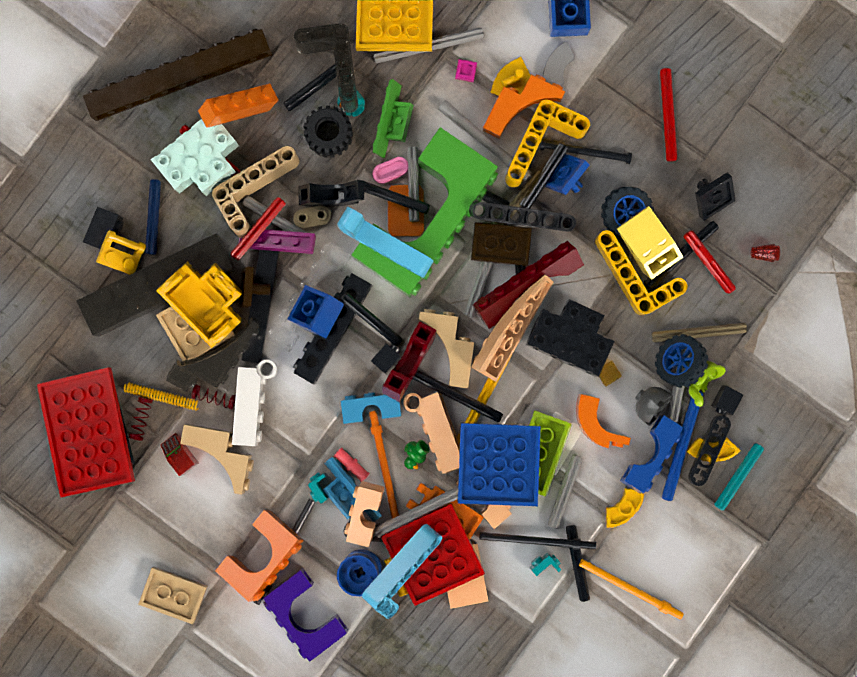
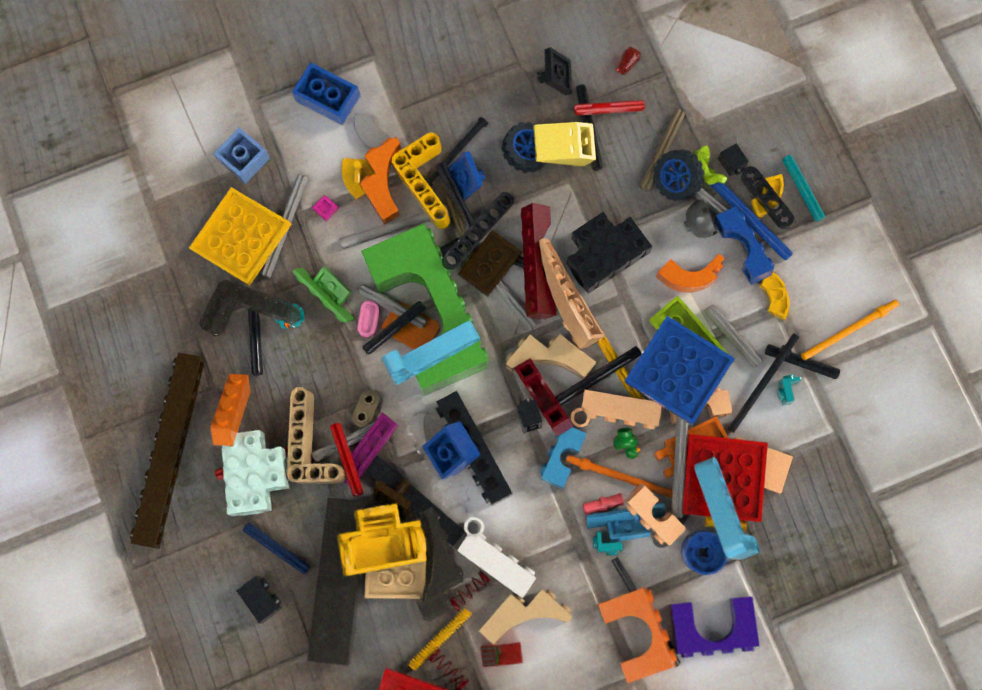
camera: 50 degrees left, 10 degrees down
(118, 259) = (293, 601): yellow plate -> none
(324, 116) = (293, 337): black tyre -> none
(331, 195) = (359, 378): black arch -> none
(371, 319) = (485, 409): black axle -> none
(609, 373) = (655, 240): clear yellow tile -> none
(633, 278) = (585, 175): yellow beam -> none
(668, 114) = (467, 70): red axle -> none

